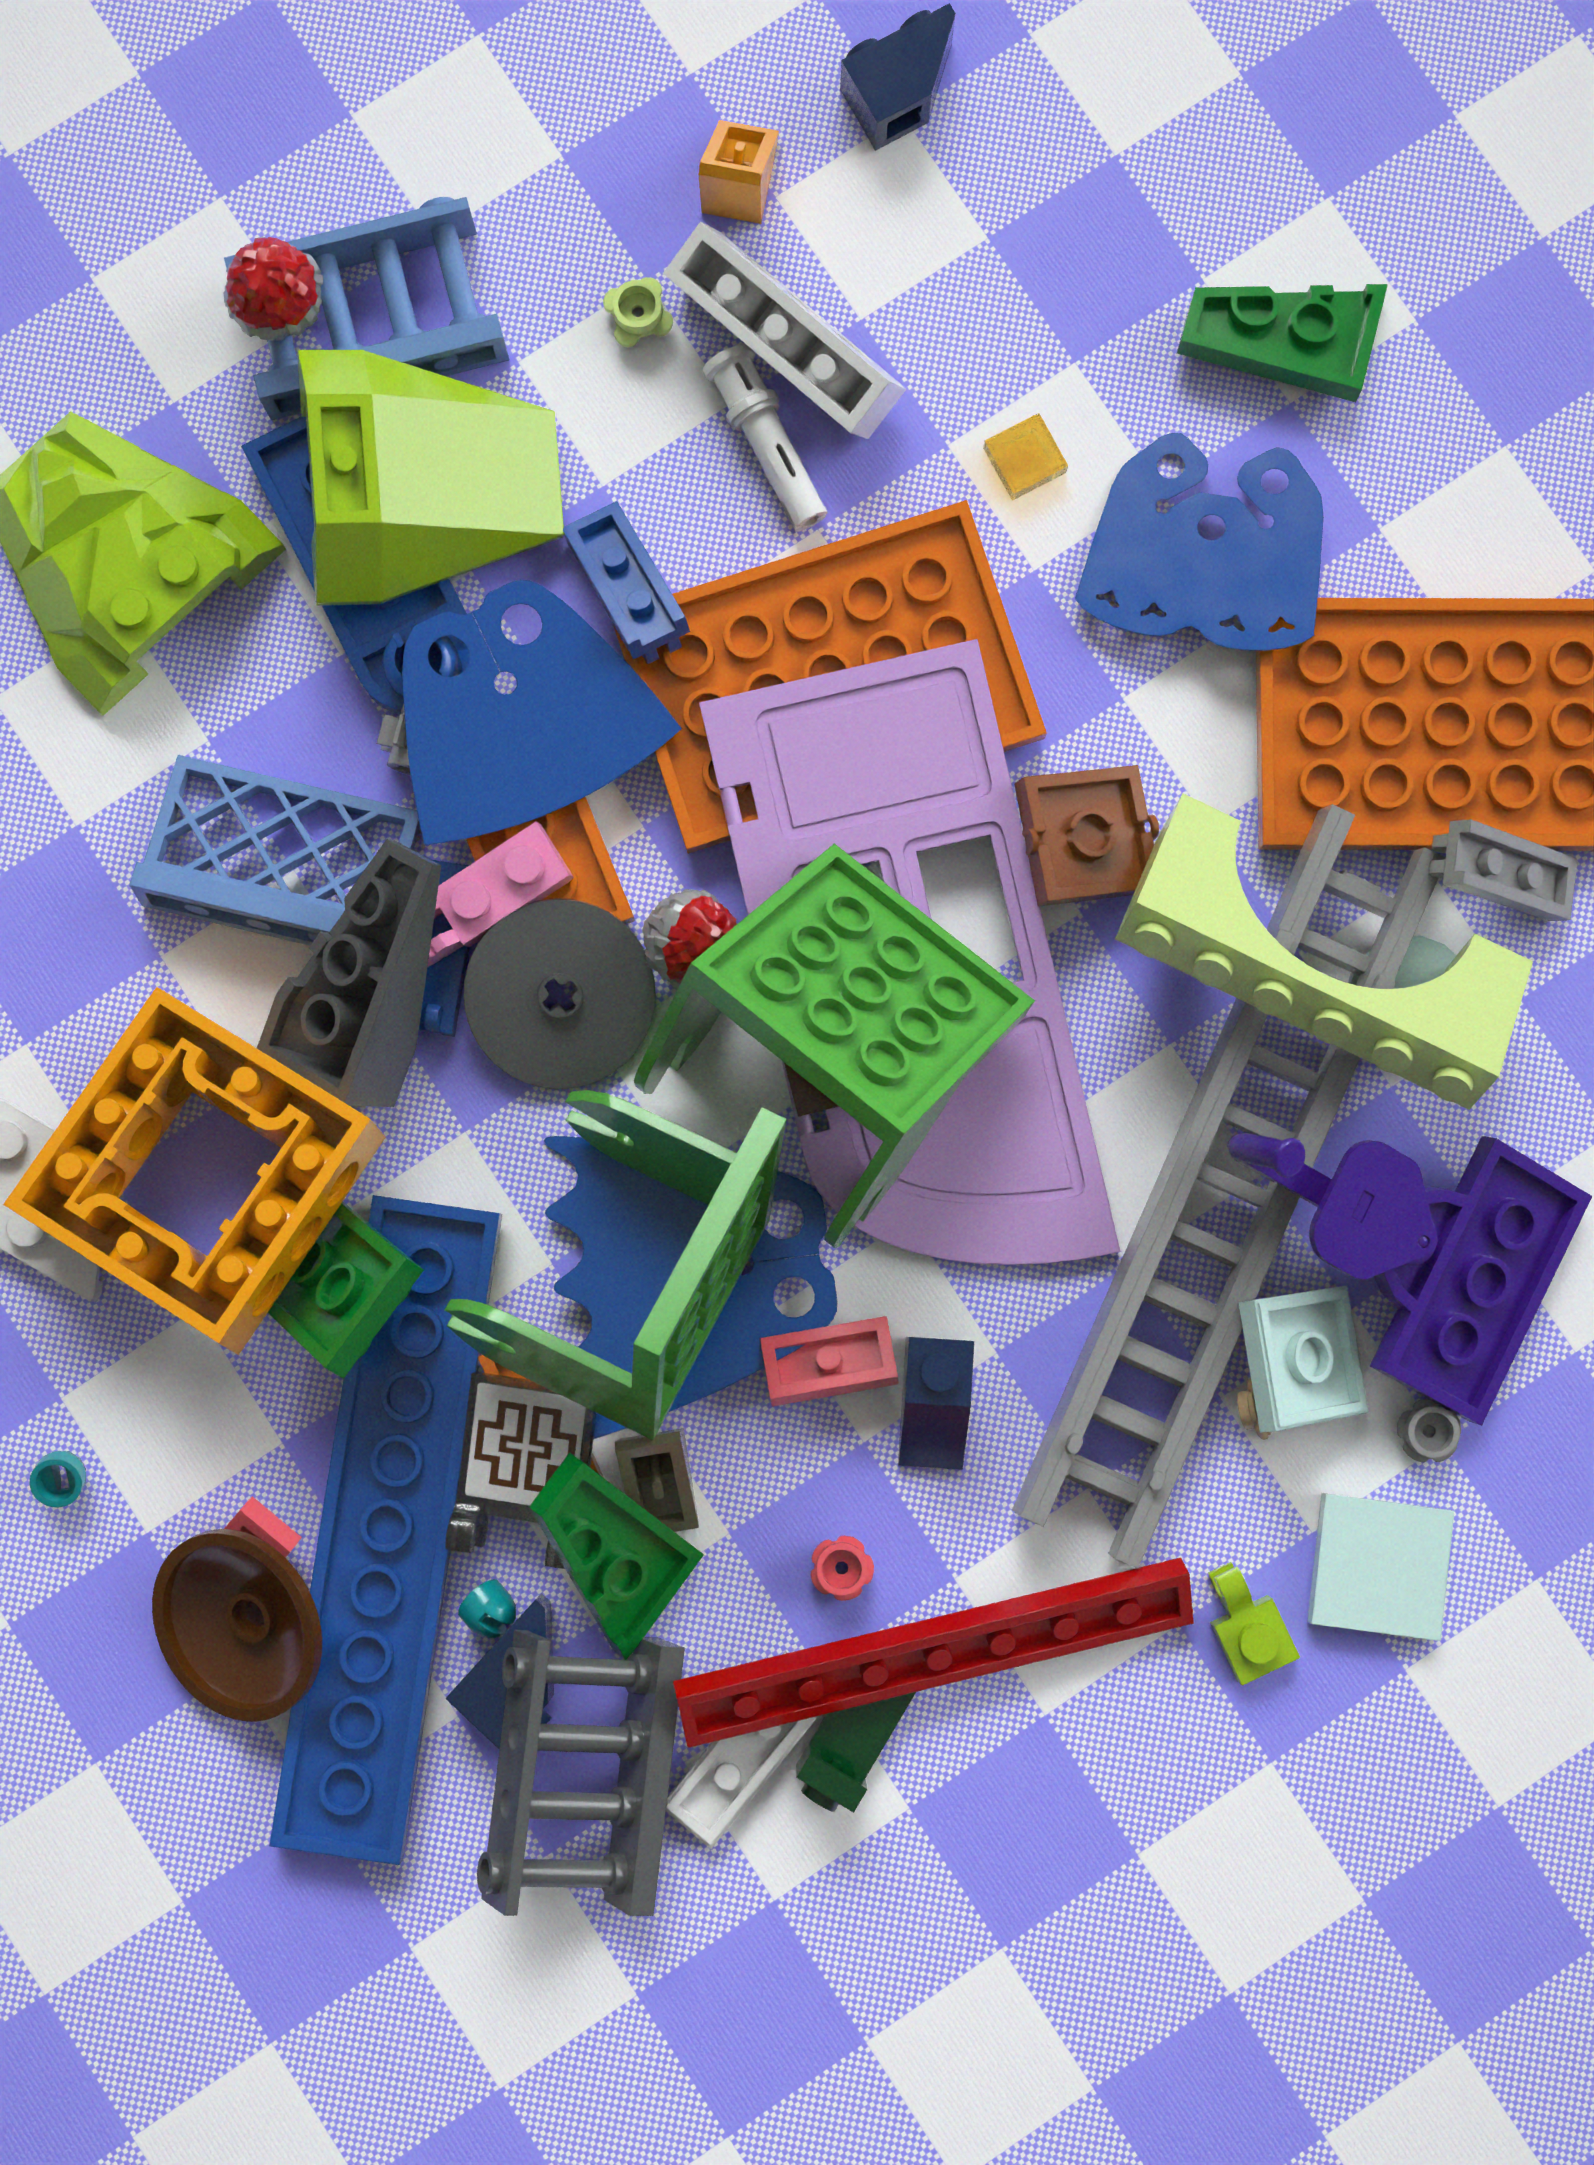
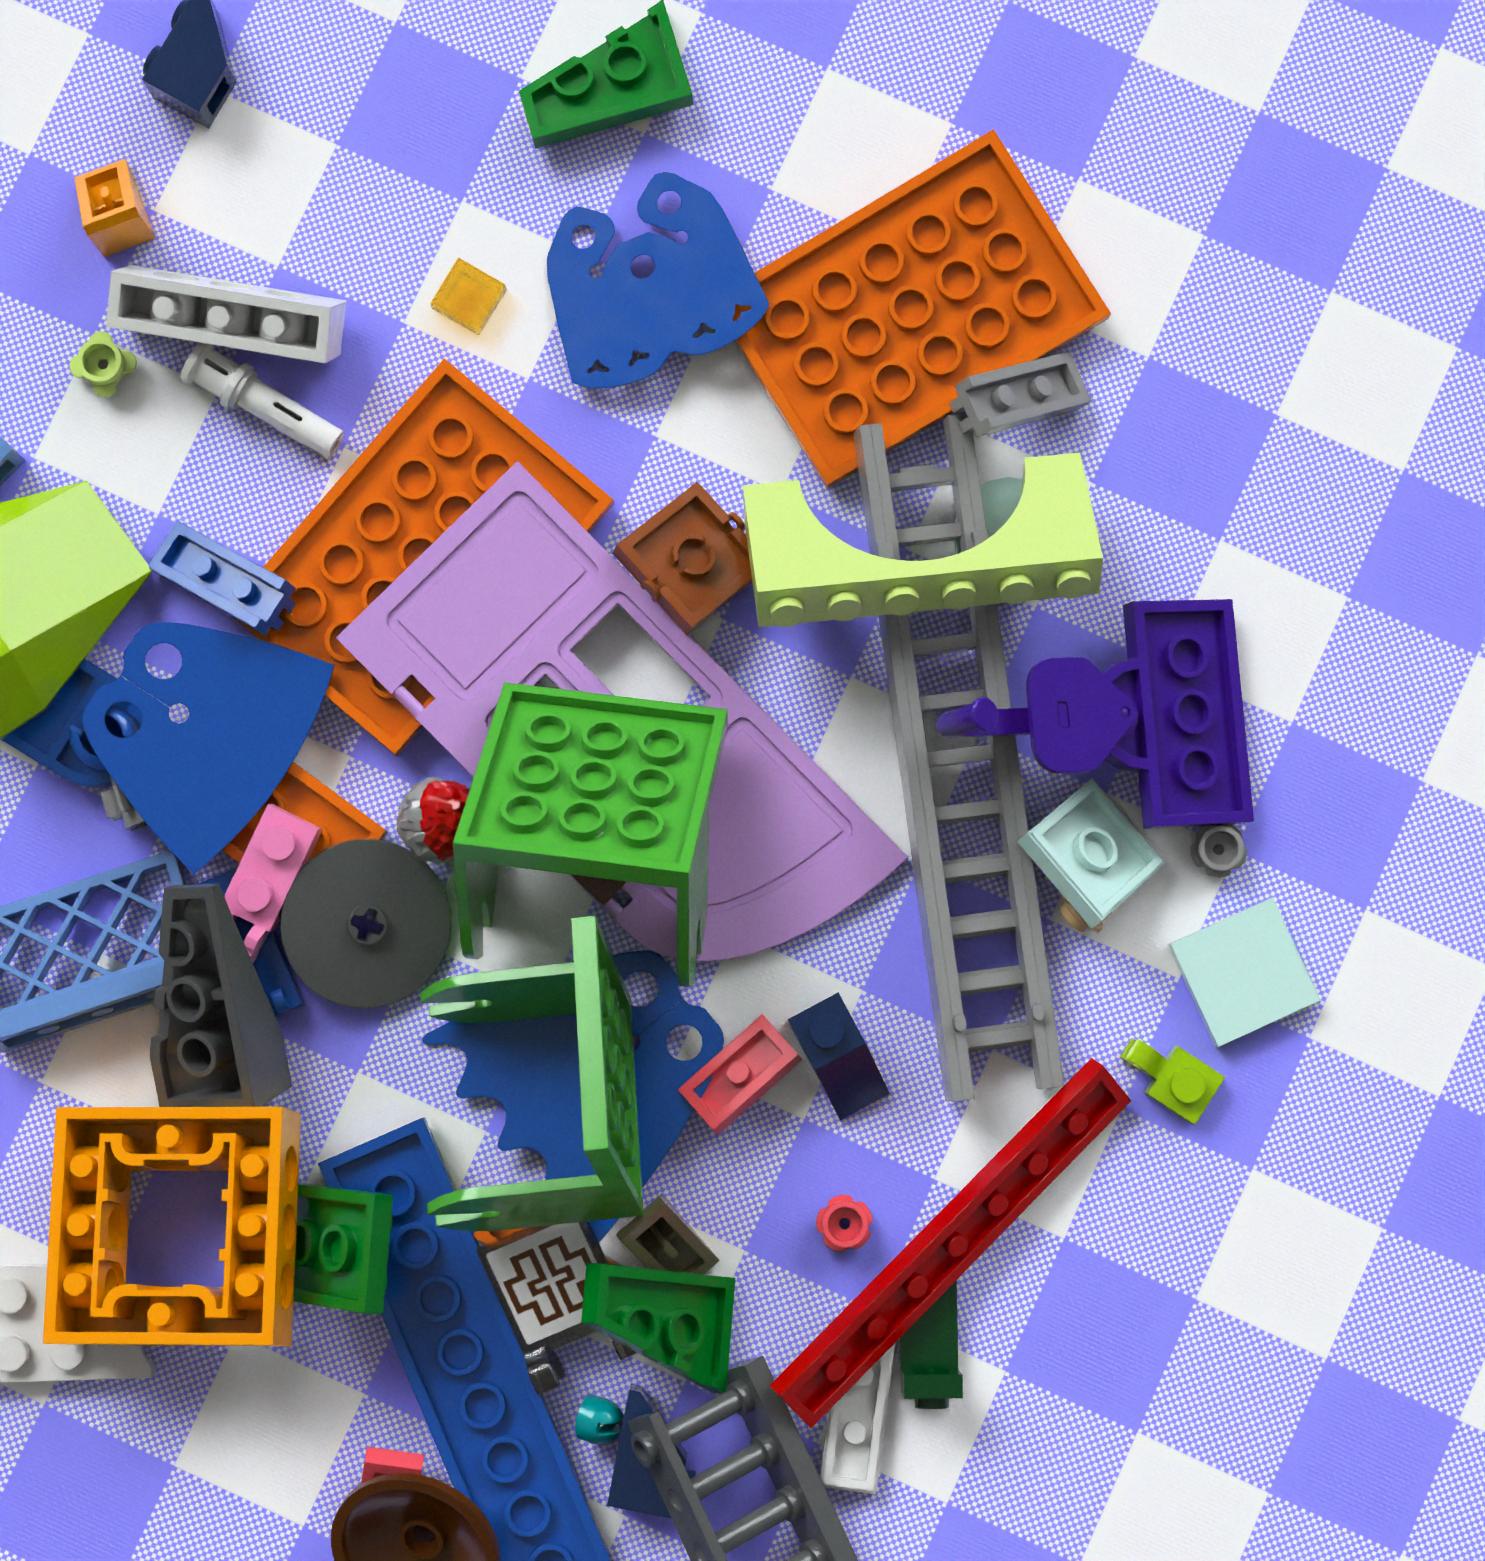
camera: 30 degrees left, 0 degrees up
(46, 1479) = (203, 1534): teal hinge -> none

